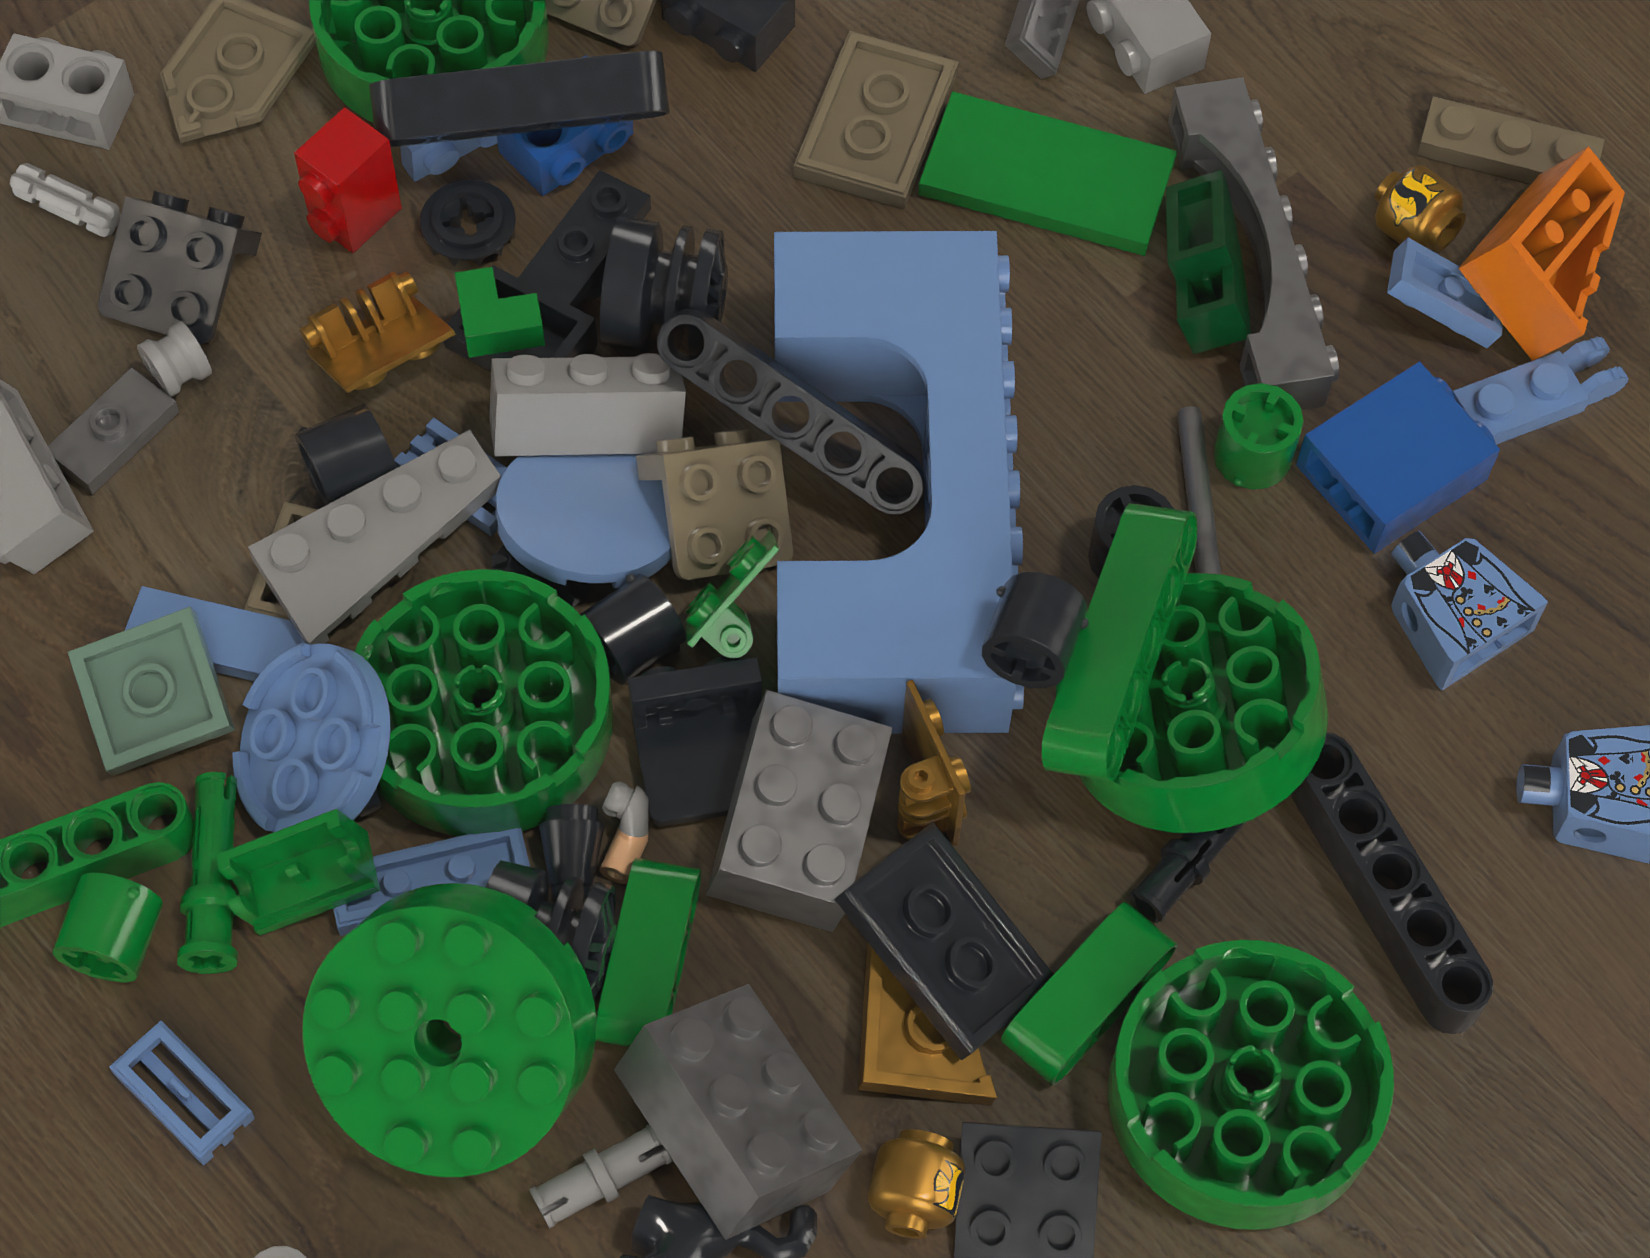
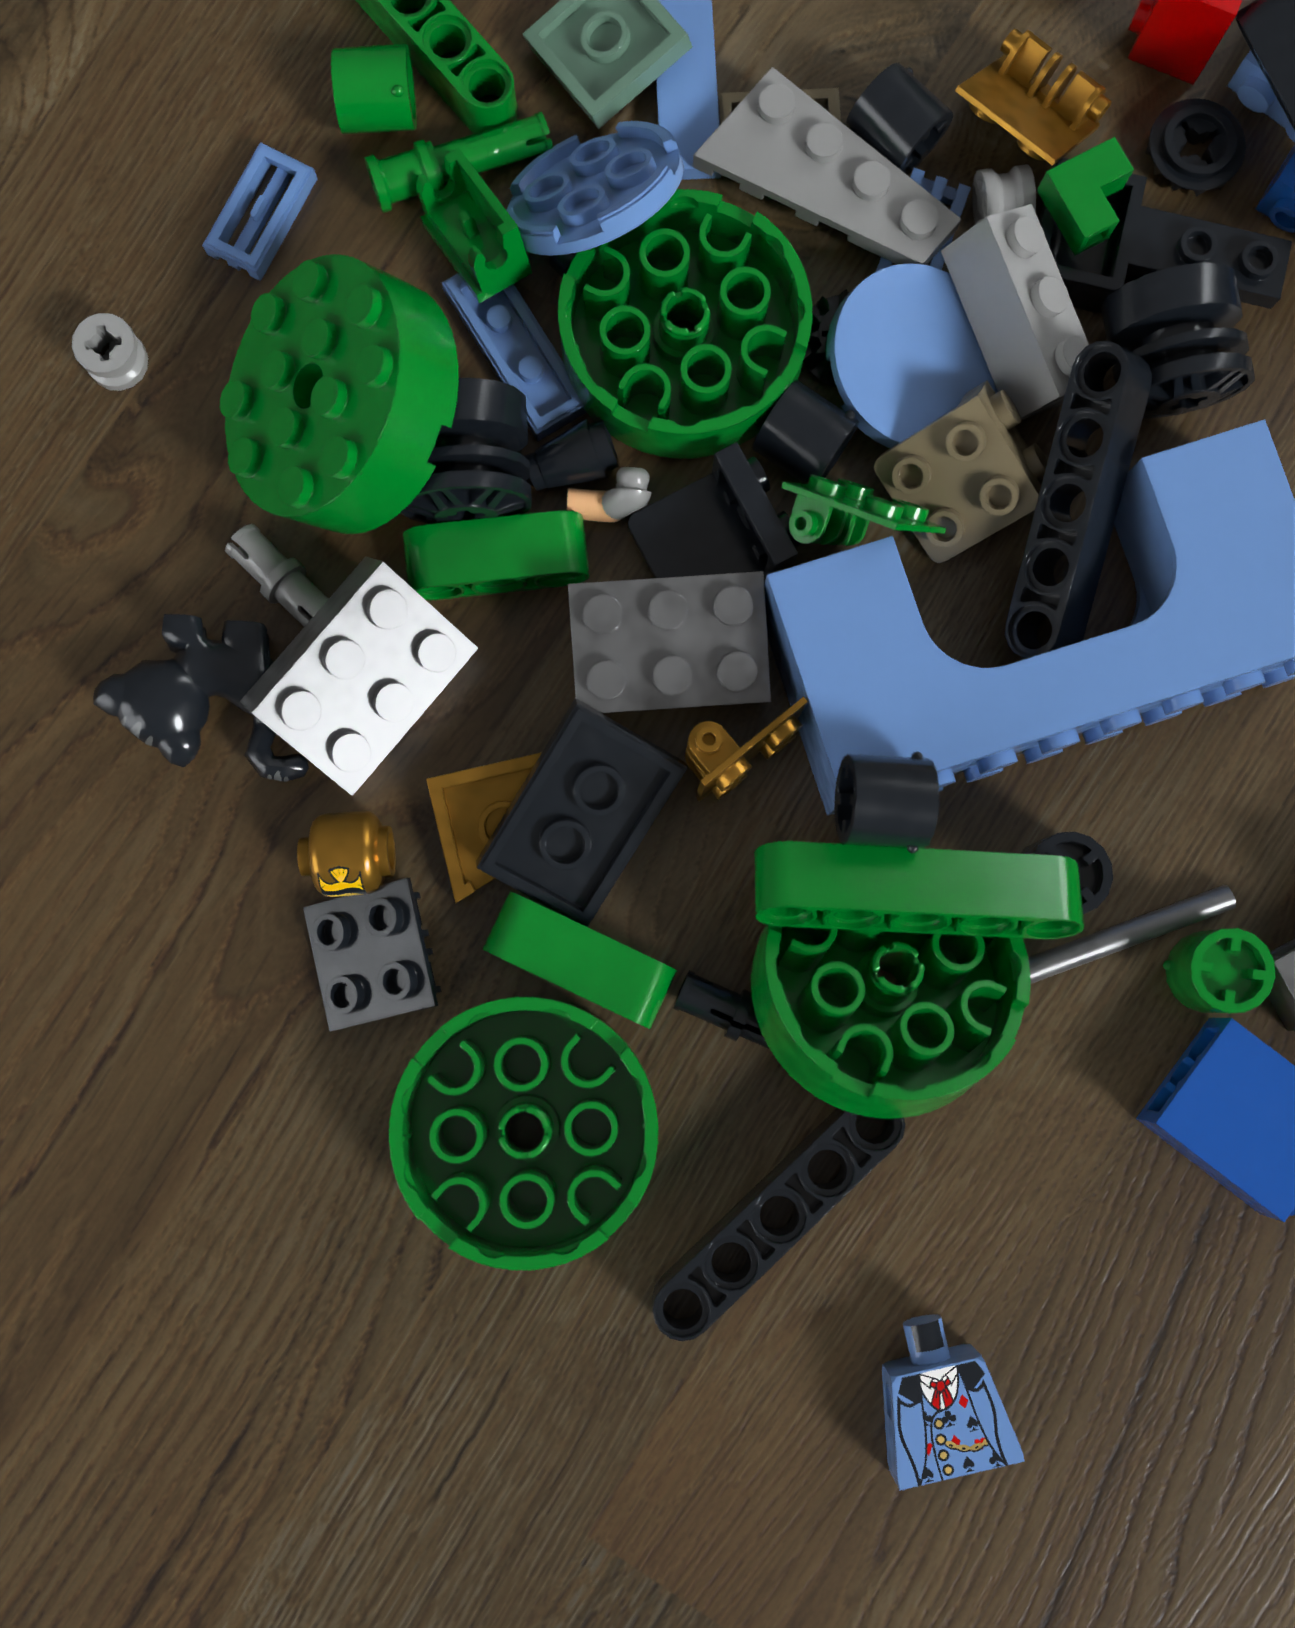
camera: 70 degrees right, 20 degrees up
(458, 392) = (1002, 192): none -> light grey wheel
(1460, 605) = (1099, 1217): medium blue torso -> none

